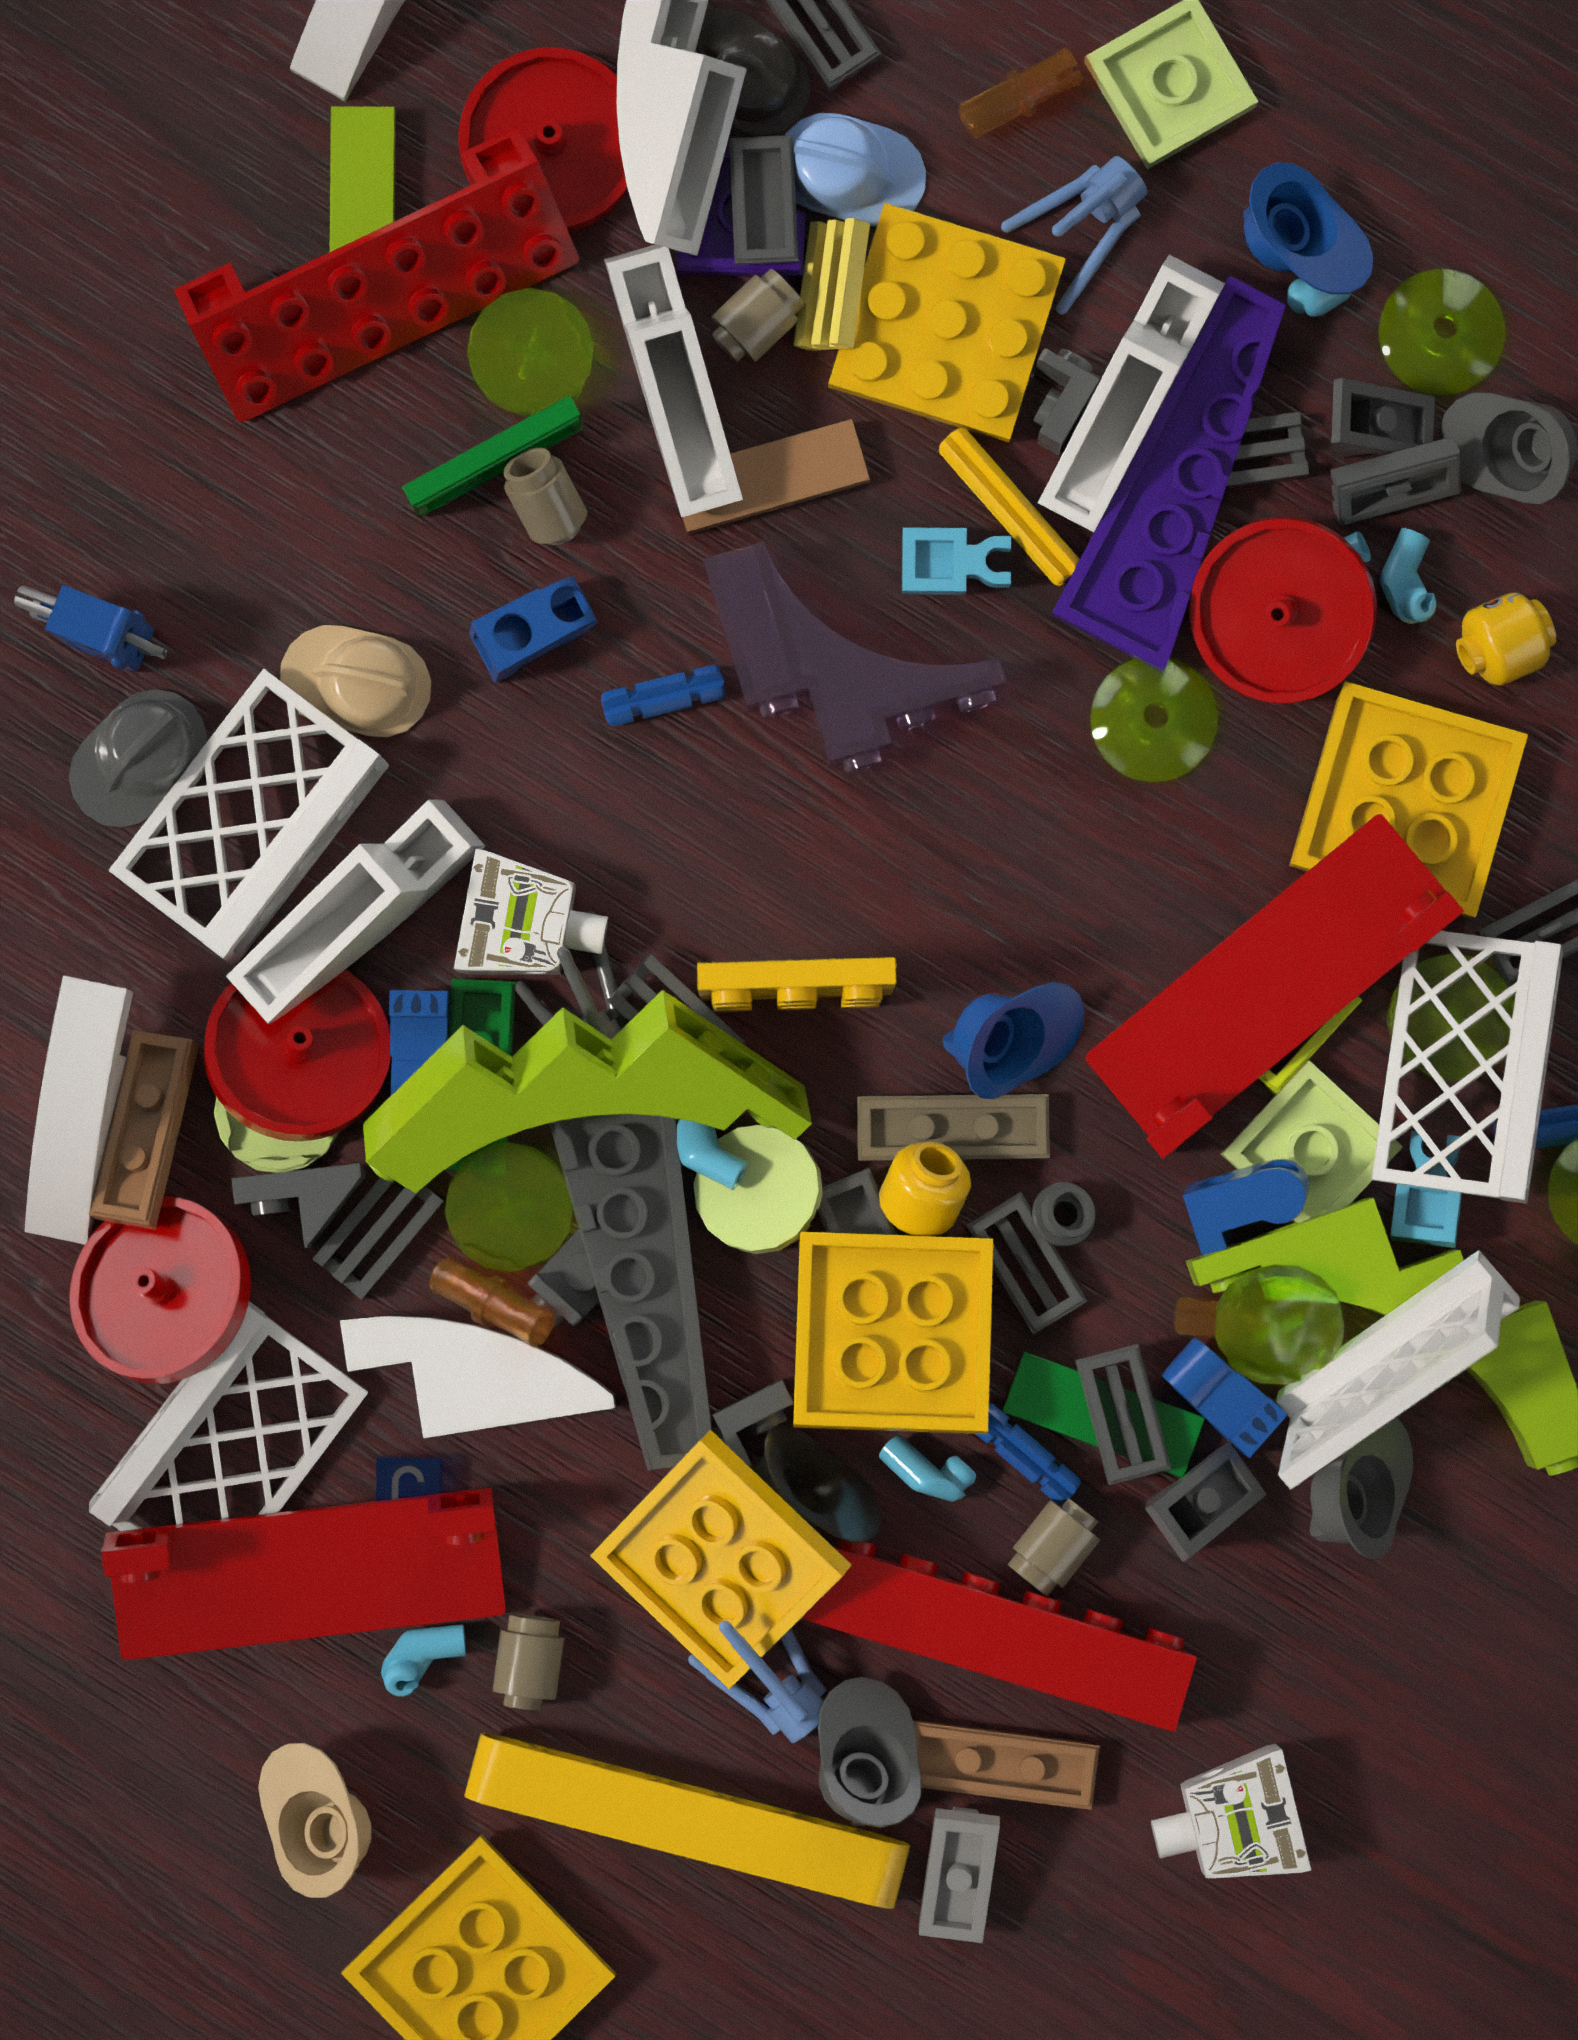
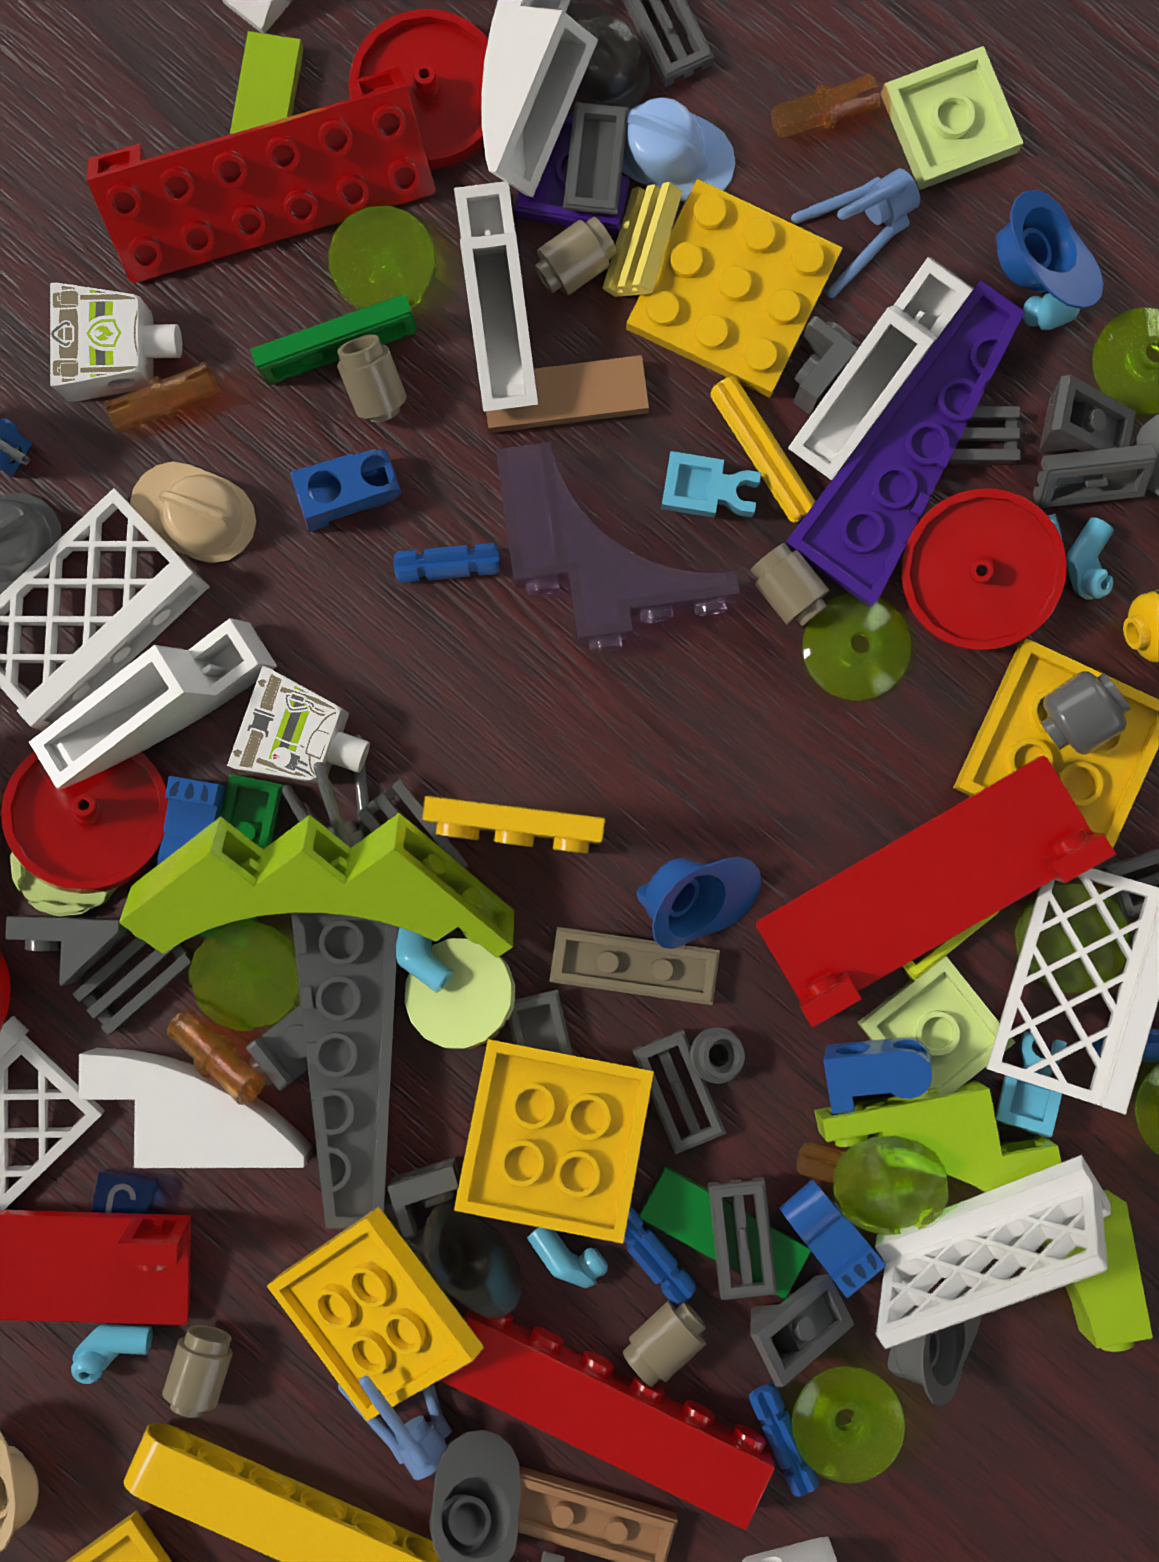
camera: 15 degrees right, 0 degrees up
(227, 499) = (104, 342): none -> white torso
(302, 553) = (162, 397): none -> clear orange pin
(925, 1189) = (601, 1018): yellow head -> none
(1065, 661) = (790, 585): none -> dark tan brick
(1206, 1637) = (778, 1431): none -> blue axle
(1308, 1609) = (852, 1450): none -> clear neon green dish
(1418, 758) = (1085, 712): none -> dark grey head

